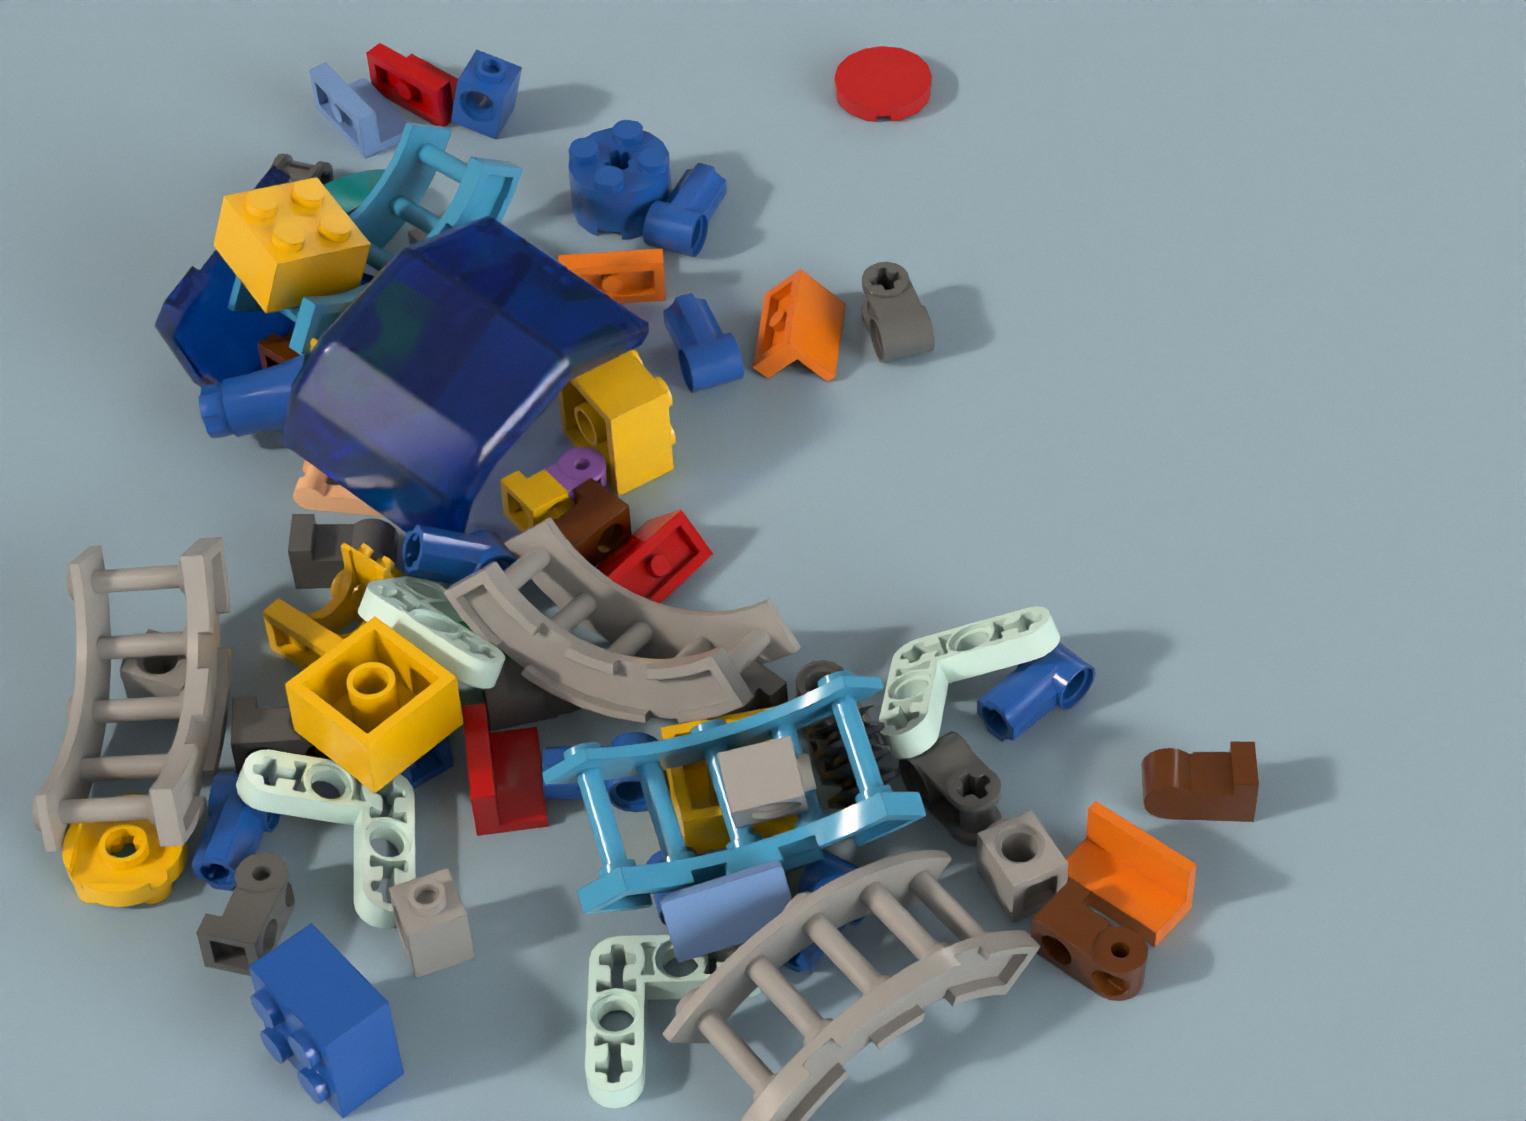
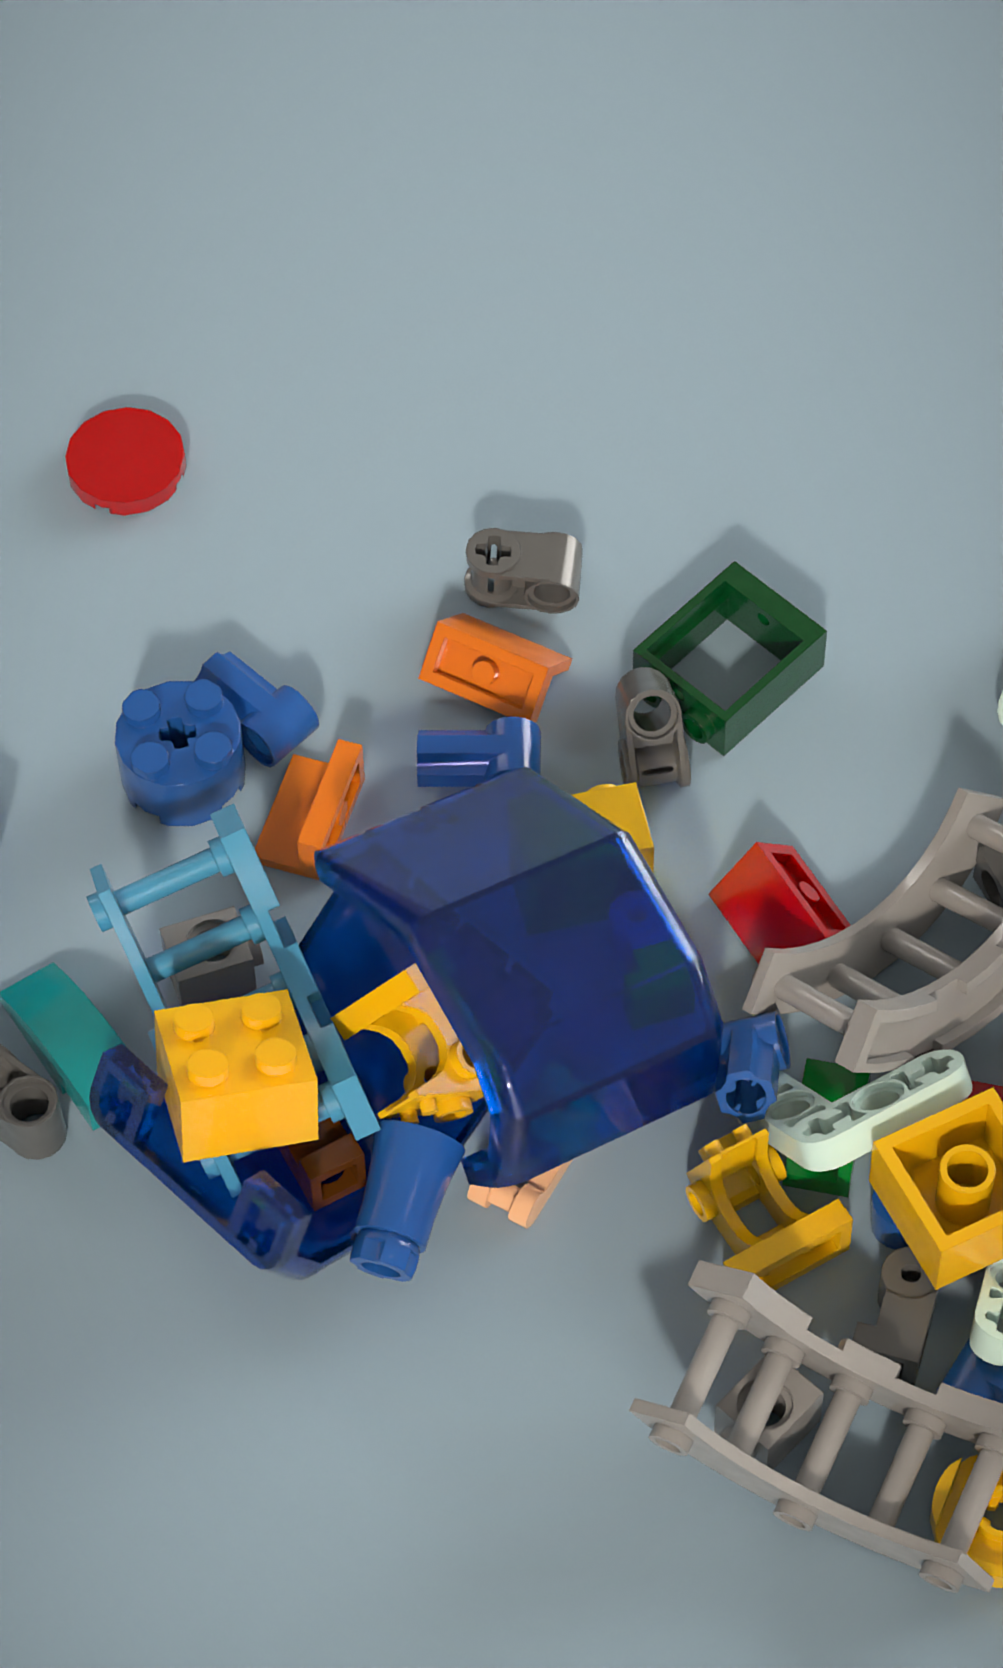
camera: 70 degrees left, 10 degrees up
(317, 552) = (644, 1196): dark grey leg -> none
(596, 522) = (725, 950): reddish brown leg -> none
(761, 419) = (650, 743): none -> dark grey piece
(881, 423) = (766, 619): none -> dark green window

